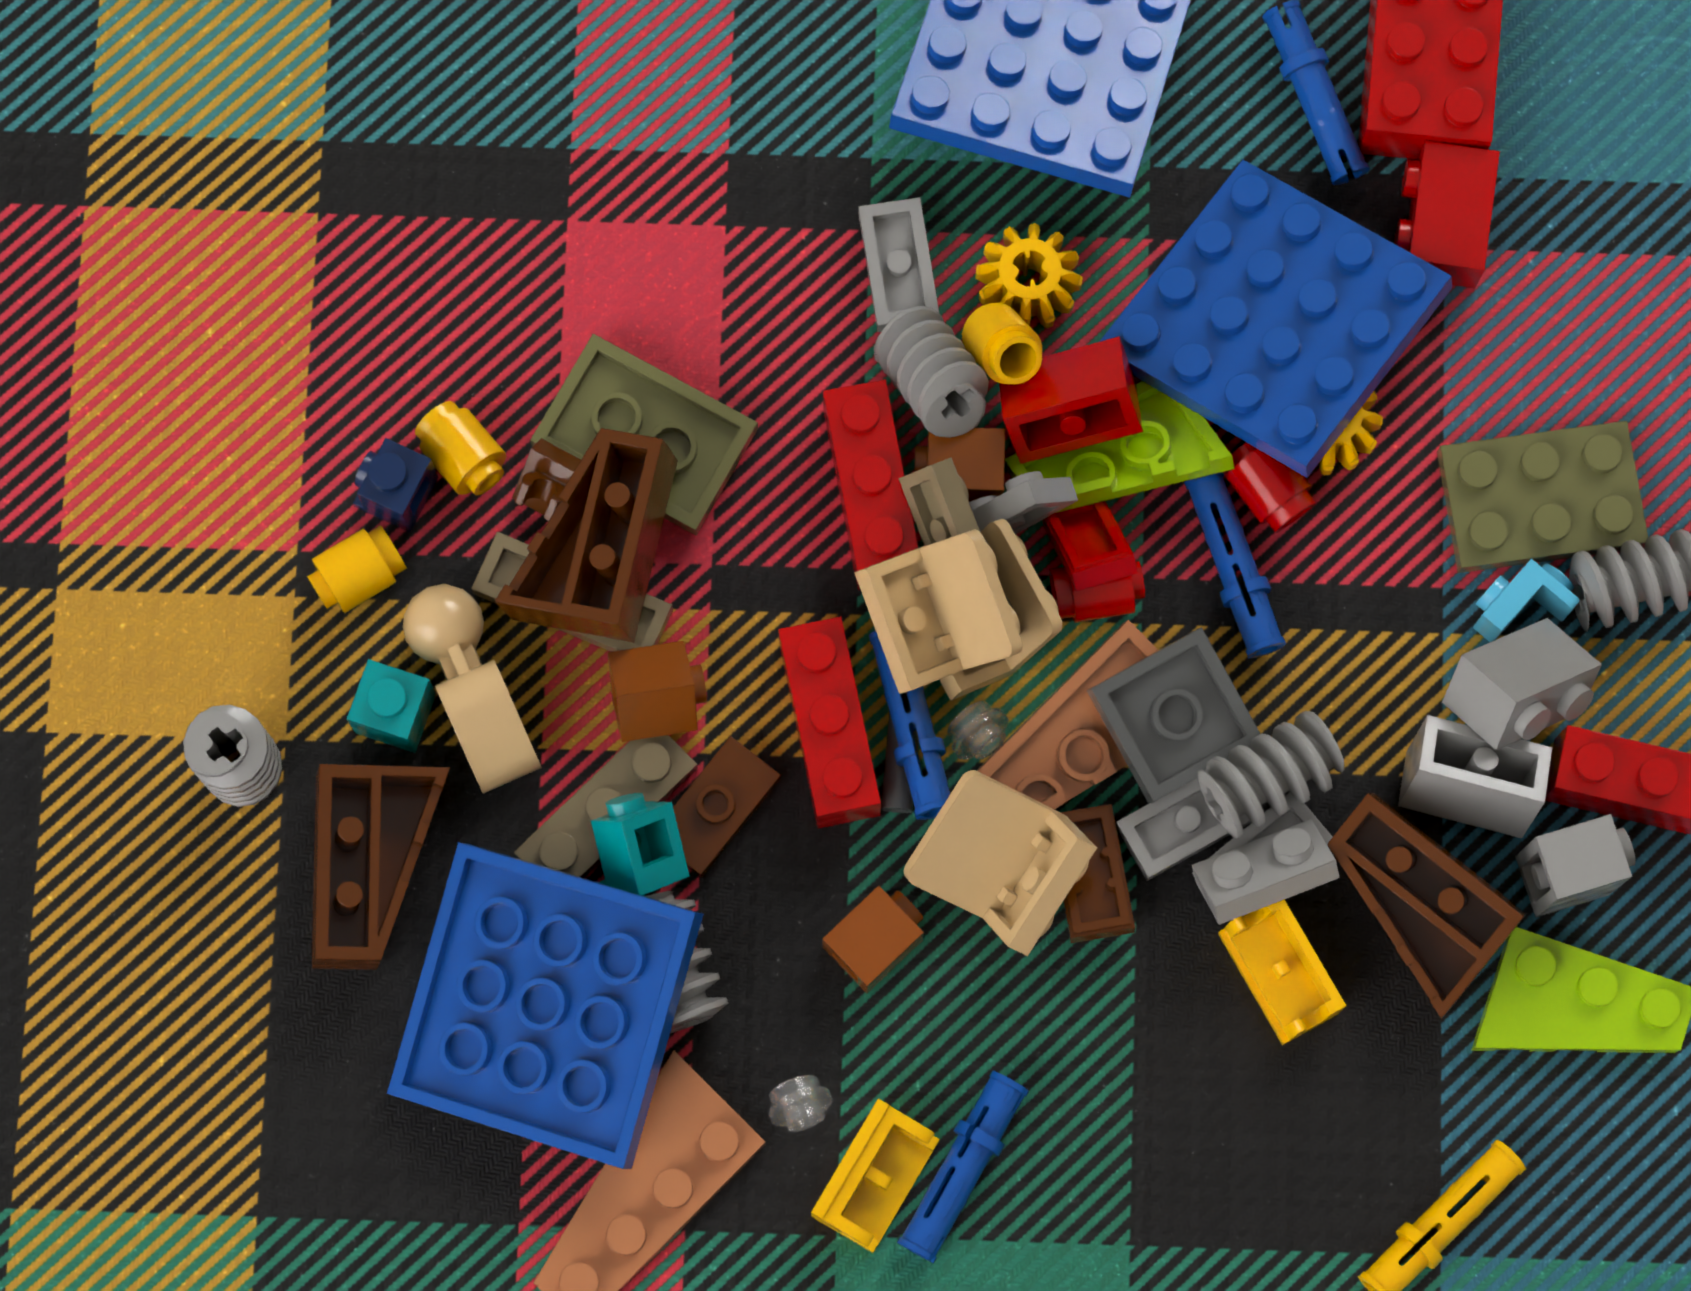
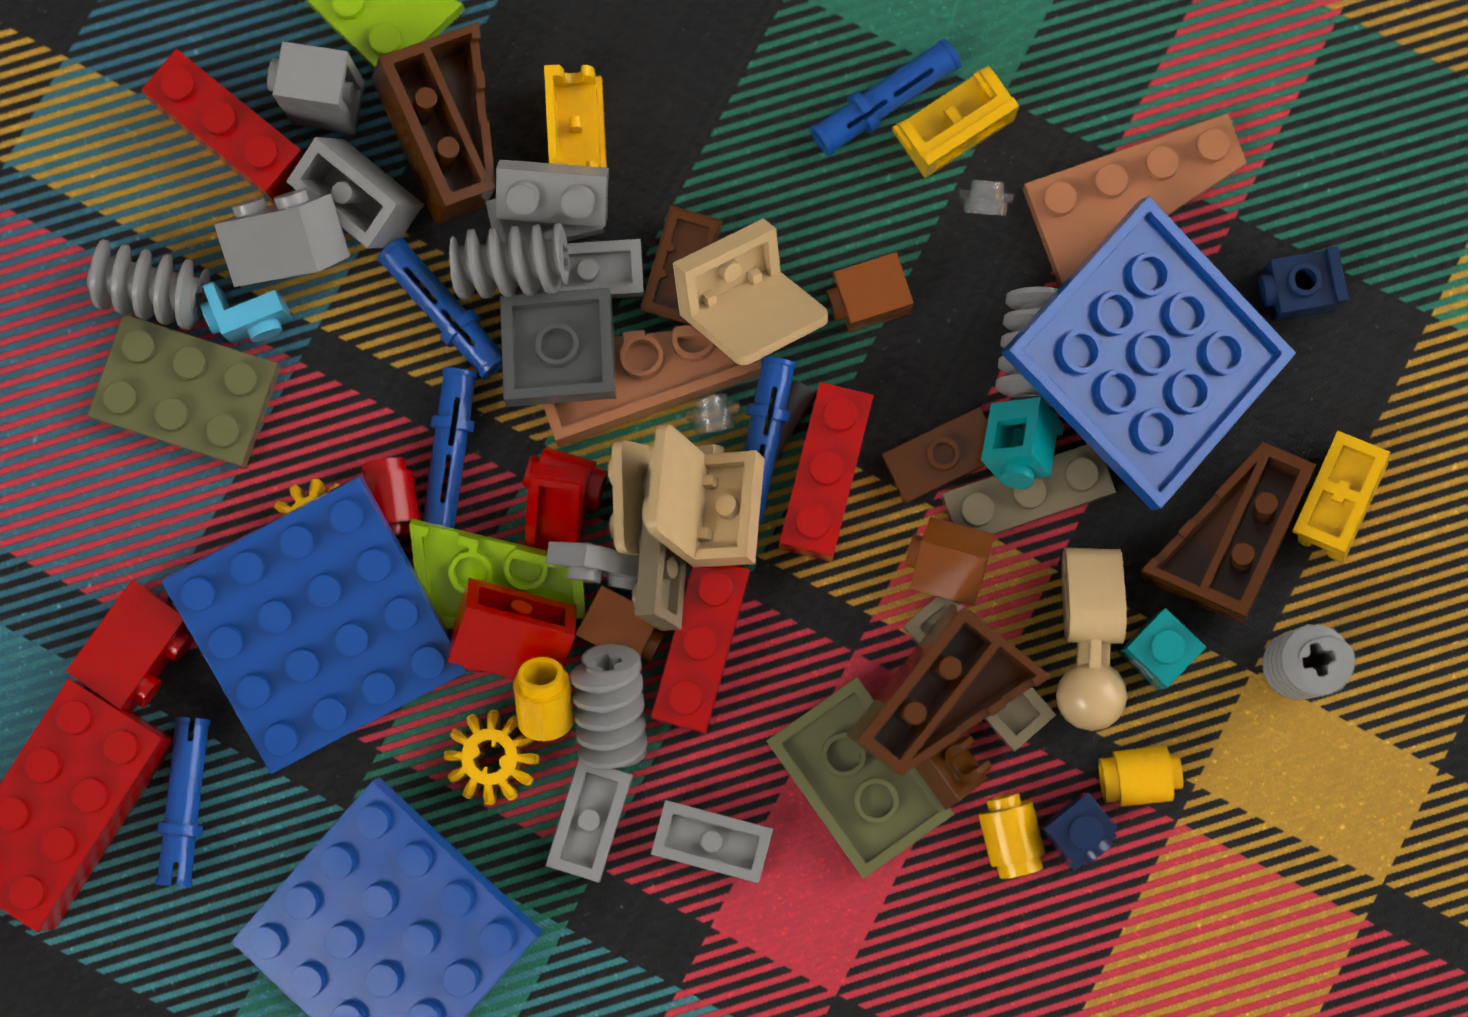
camera: 150 degrees left, 5 degrees up
(271, 957) = (1341, 495): none -> yellow hinge
(407, 1198) = (1287, 300): none -> dark blue brick
(764, 302) = (712, 841): none -> light grey plate
(1342, 716) = (401, 263): none -> blue pin

